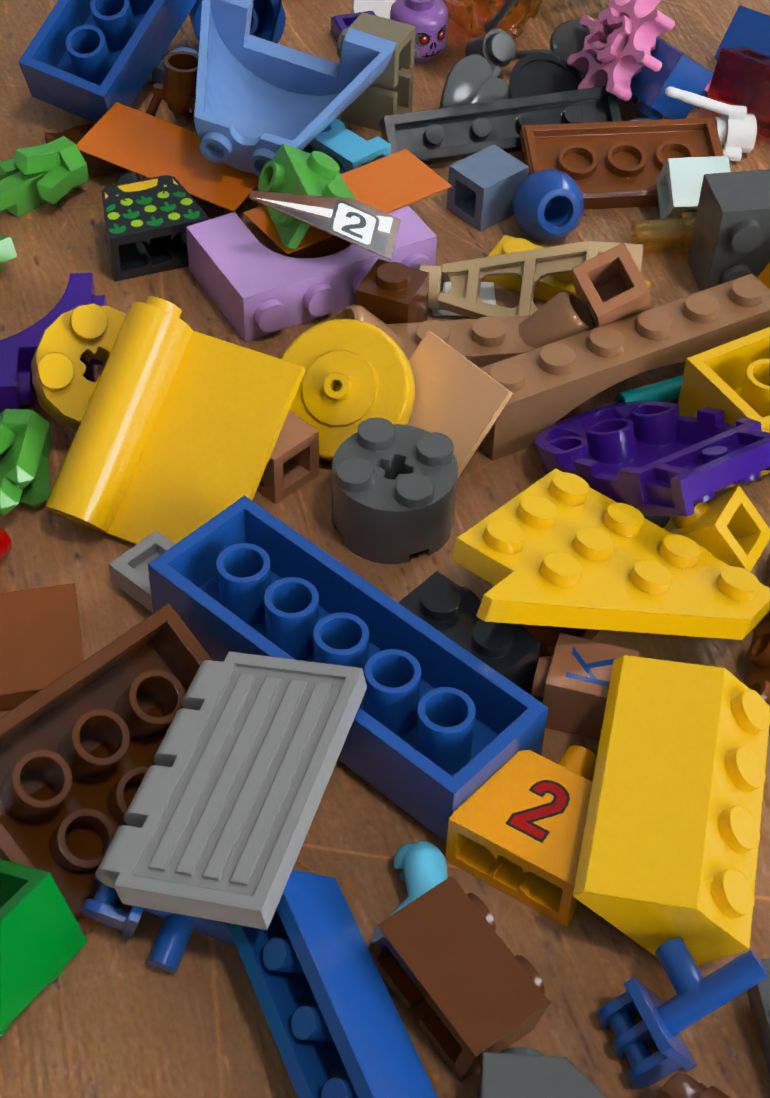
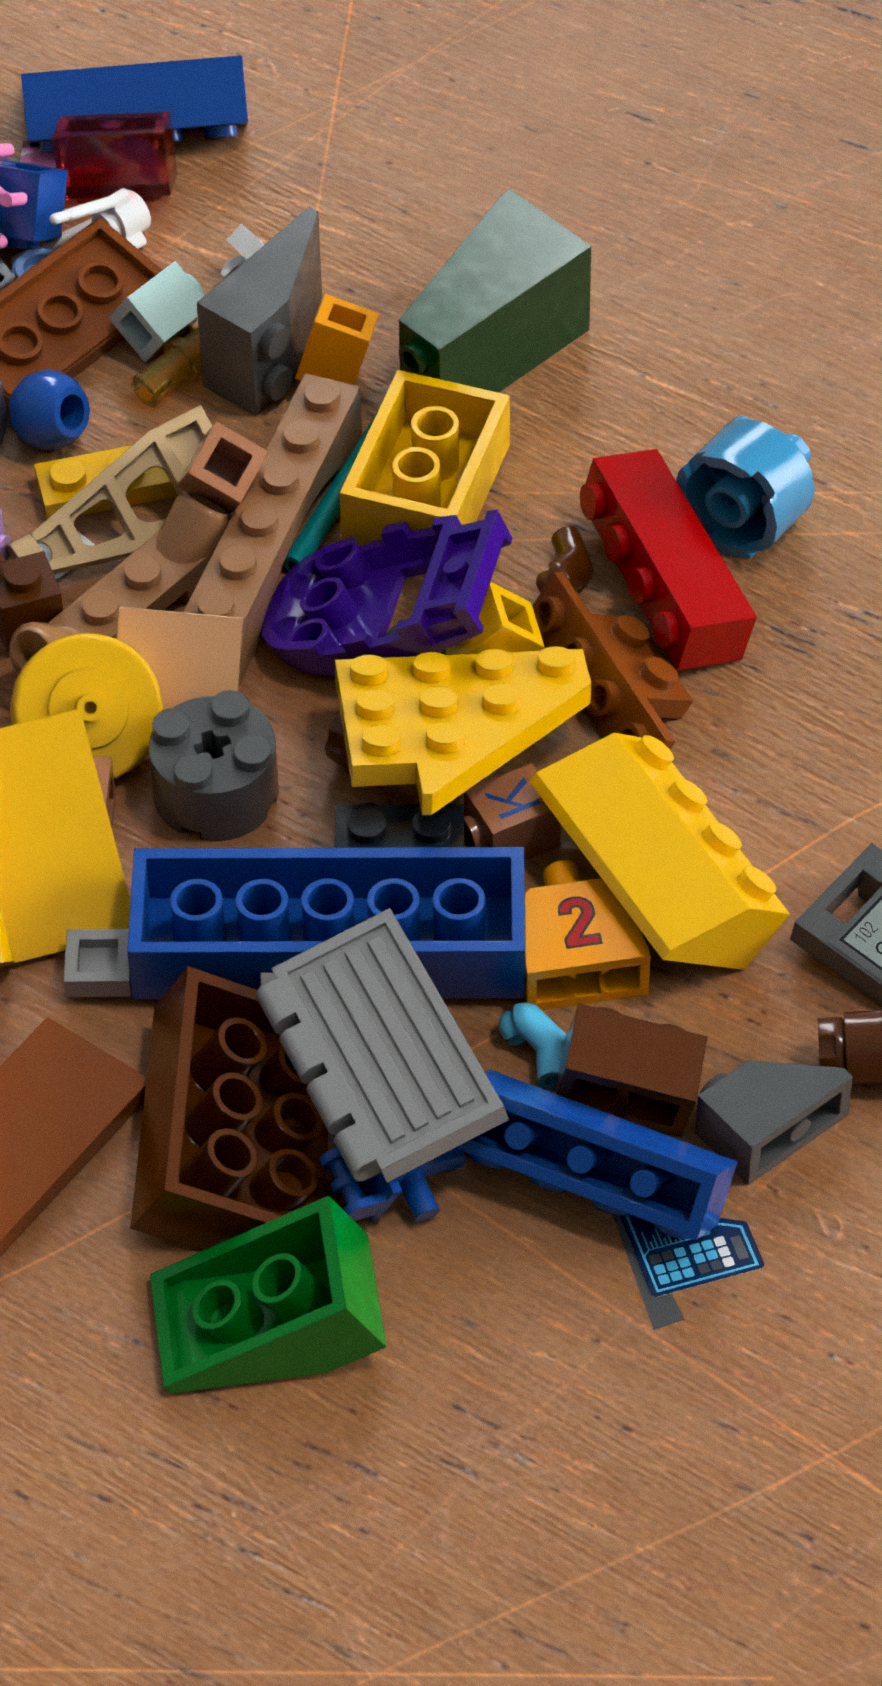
camera: 40 degrees left, 5 degrees up
(662, 1021) = (784, 972): blue arm -> none

